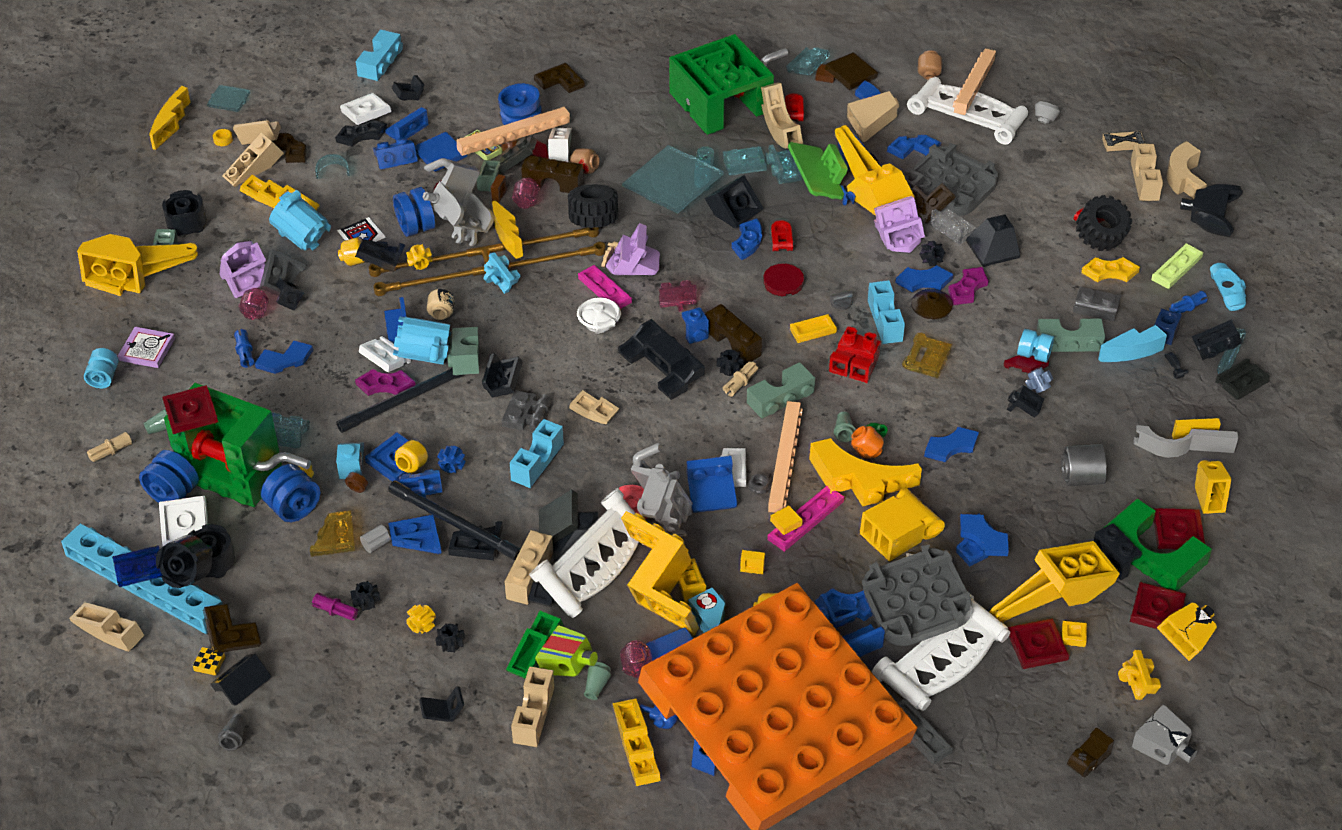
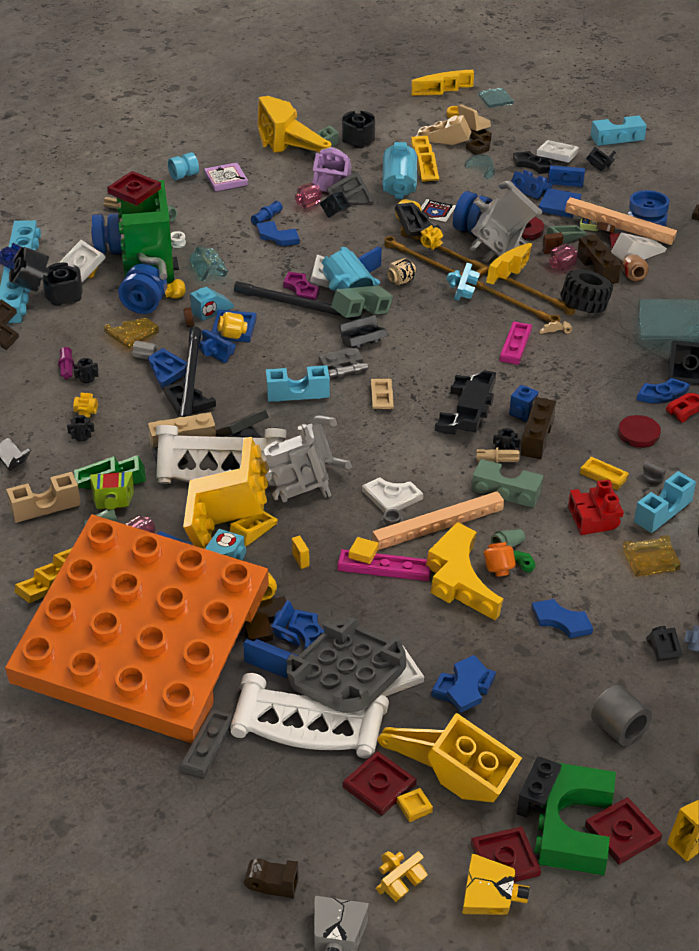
camera: 55 degrees right, 5 degrees down
(451, 459) = (253, 347): blue gear -> none
(513, 156) = (600, 229): pearl dark grey plate -> none
(599, 314) = (479, 350): white piece -> none
(633, 256) = (562, 337): lavender piece -> none
(677, 296) = (548, 381): clear pink hips -> none
(711, 484) = (358, 489): blue bracket -> none
(899, 524) = (428, 621): yellow piece -> none

